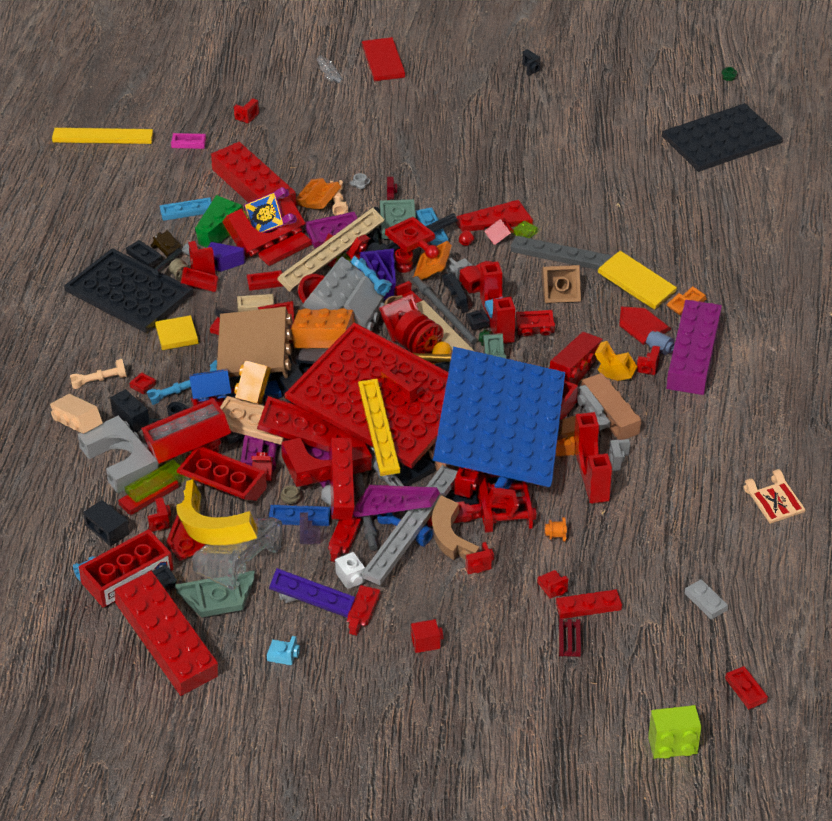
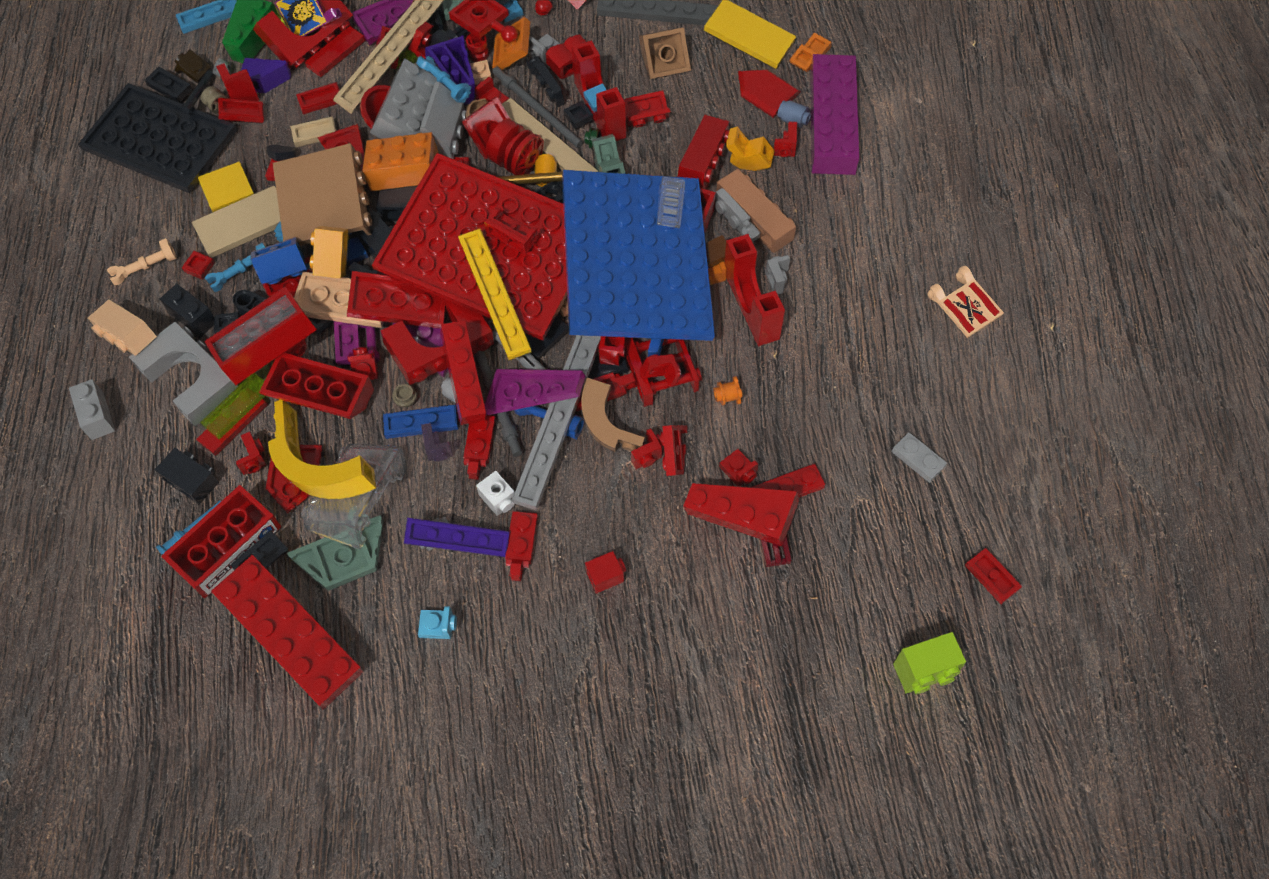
camera: 10 degrees left, 20 degrees up
(40, 467) = (91, 409): none -> light grey brick
(182, 358) = (239, 222): none -> tan tile
(402, 277) = (480, 71): none -> light nougat plate
(501, 561) = (675, 452): none -> red wing
(537, 375) = (673, 188): none -> clear slope
(549, 607) = (751, 511): none -> red wedge

